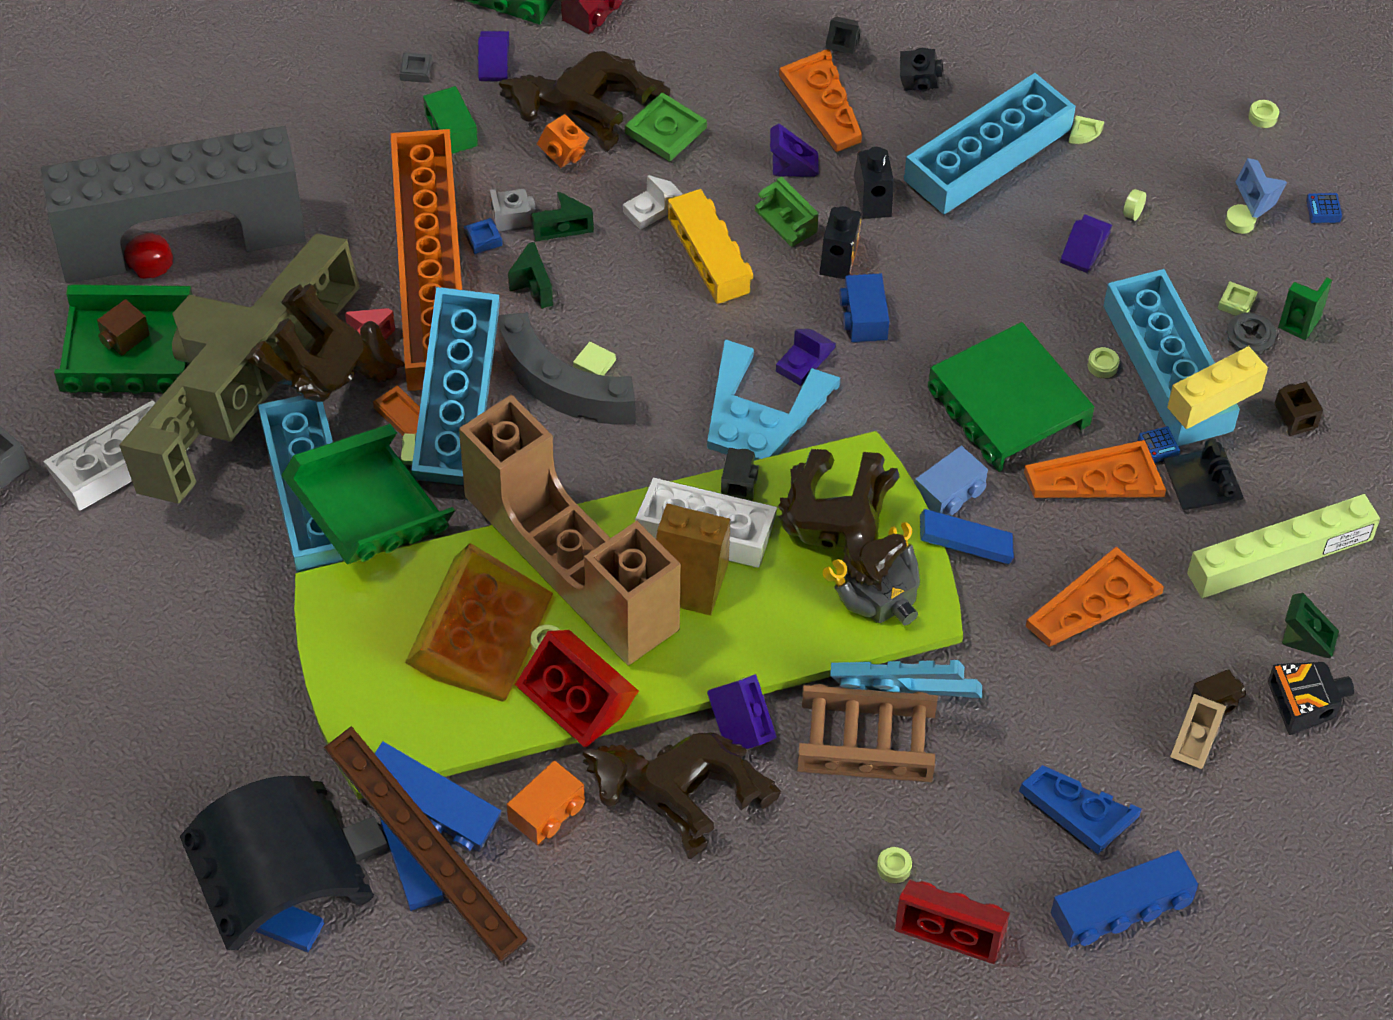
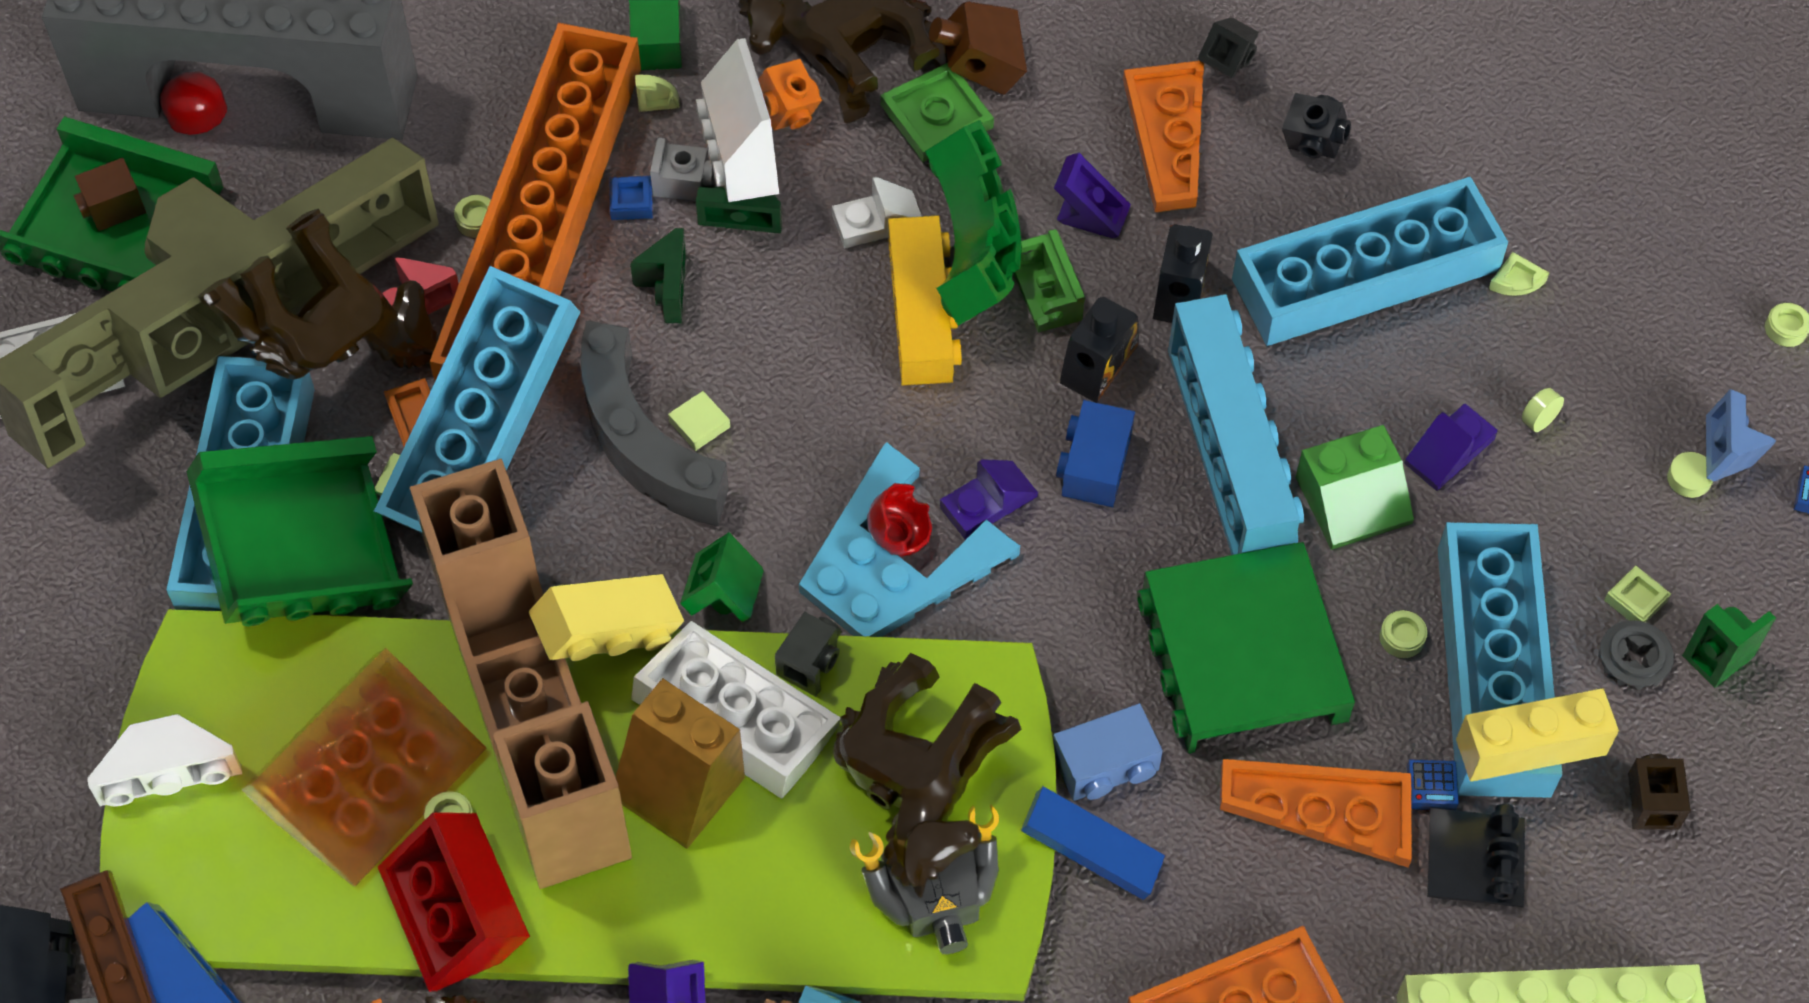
camera: 20 degrees right, 5 degrees up
(344, 659) = (161, 760): none -> white slope
(382, 275) = (470, 214): none -> yellowish green tile
(469, 165) = (655, 93): none -> yellowish green tile
(546, 163) = (738, 127): none -> white slope
(604, 485) = (606, 617): none -> light yellow brick
(657, 450) = (723, 577): none -> green panel
(681, 75) = (983, 44): none -> reddish brown torso
(729, 183) = (982, 220): none -> green brick
(757, 384) = (899, 521): none -> red hair
(947, 265) = (1232, 427): none -> medium azure brick
(1037, 282) = (1355, 486): none -> bright green slope

